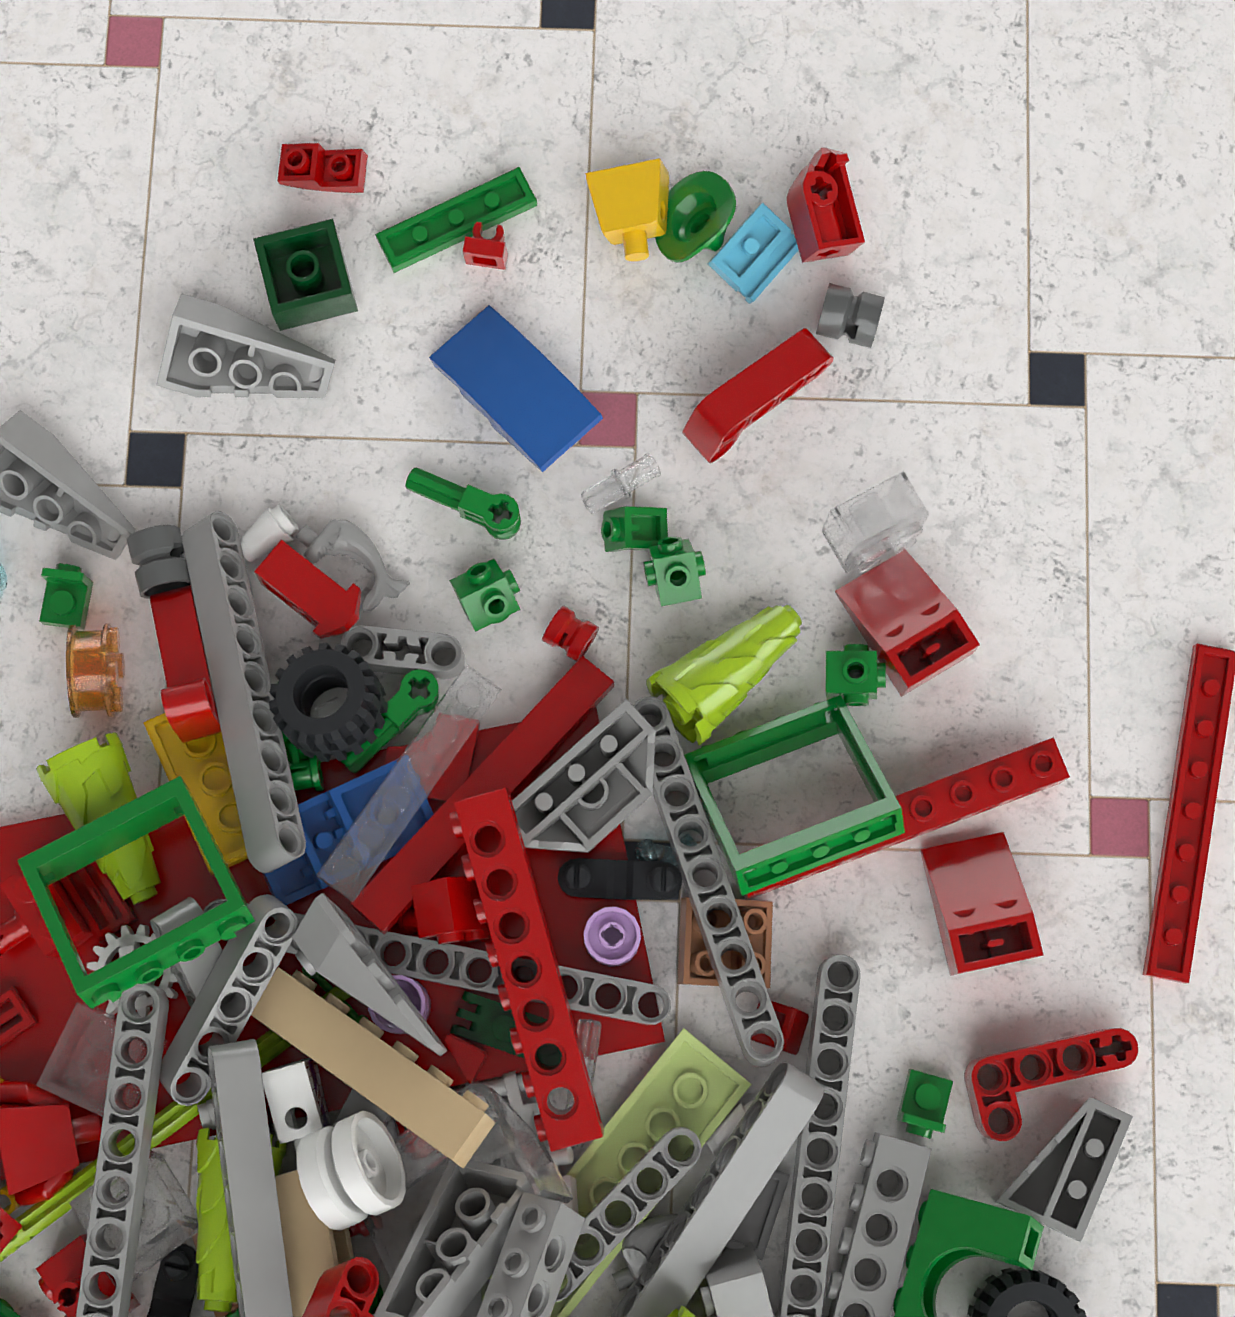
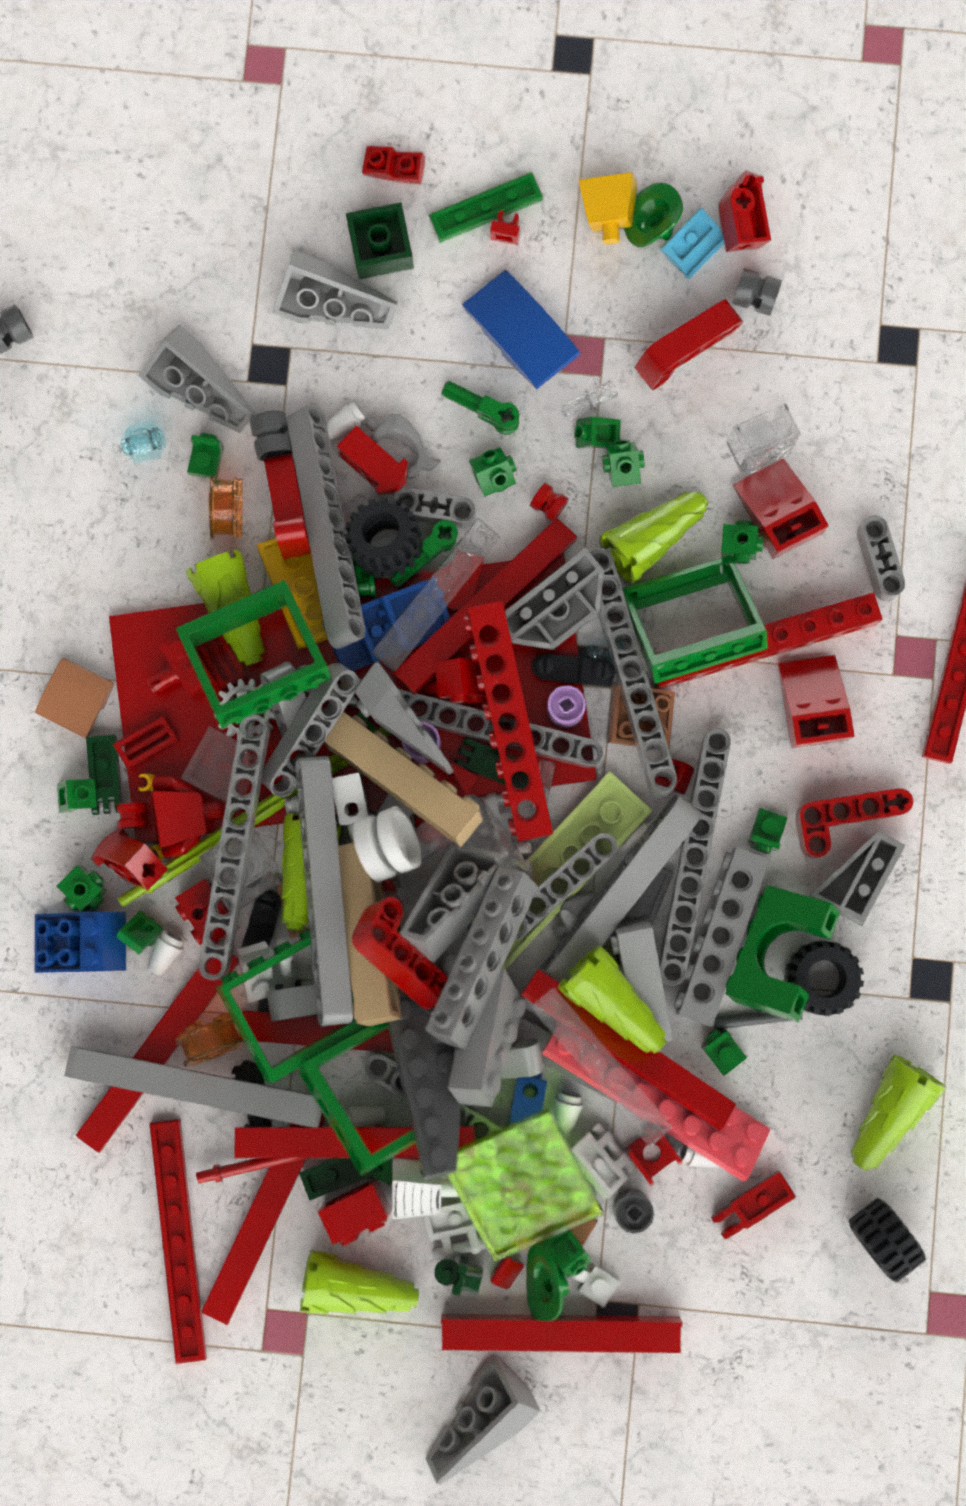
camera: 10 degrees right, 5 degrees up
(1052, 699) = (870, 550): none -> light grey beam

